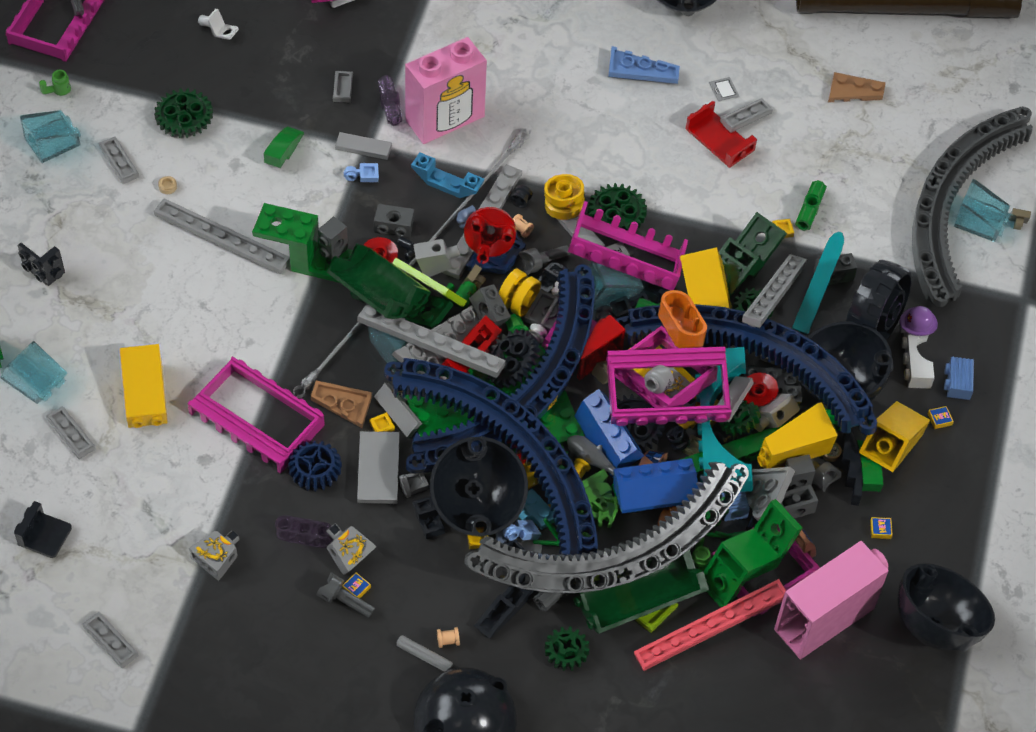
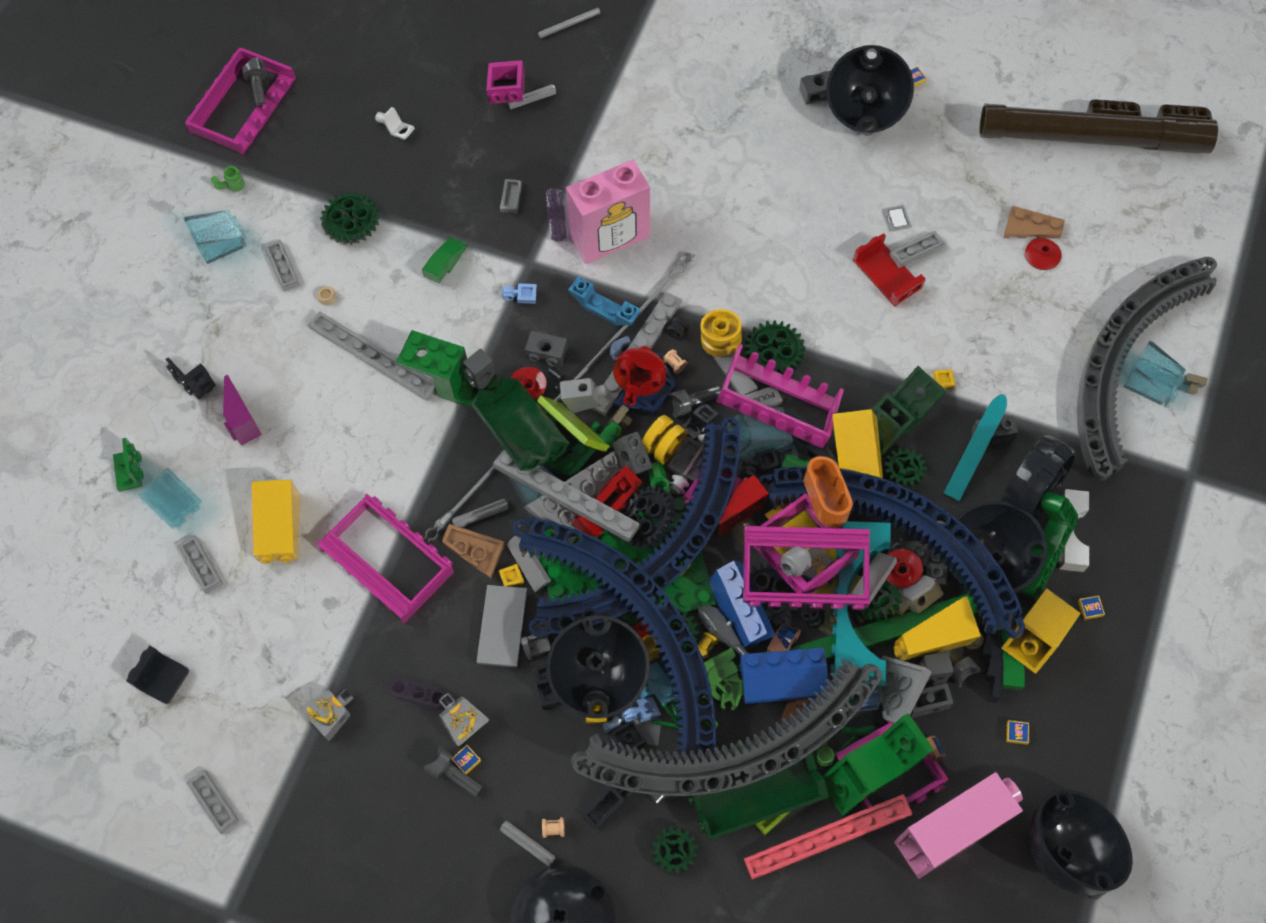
camera: 10 degrees right, 10 degrees up
(98, 296) = (238, 418): none -> magenta slope
(322, 472) = (451, 626): dark blue gear -> none
(346, 370) = (480, 513): none -> light grey axle
(363, 145) = (525, 262): light grey tile -> none
(641, 68) = (813, 191): medium blue wing -> none
(774, 291) = (927, 458): light grey plate -> none
(811, 205) = (979, 347): green piece -> none
(867, 114) = (1043, 260): none -> red dish
(903, 347) = (1057, 532): none -> green beam
(918, 321) = (1081, 497): medium lavender hat -> none
(960, 378) = (1115, 564): medium blue brick -> none

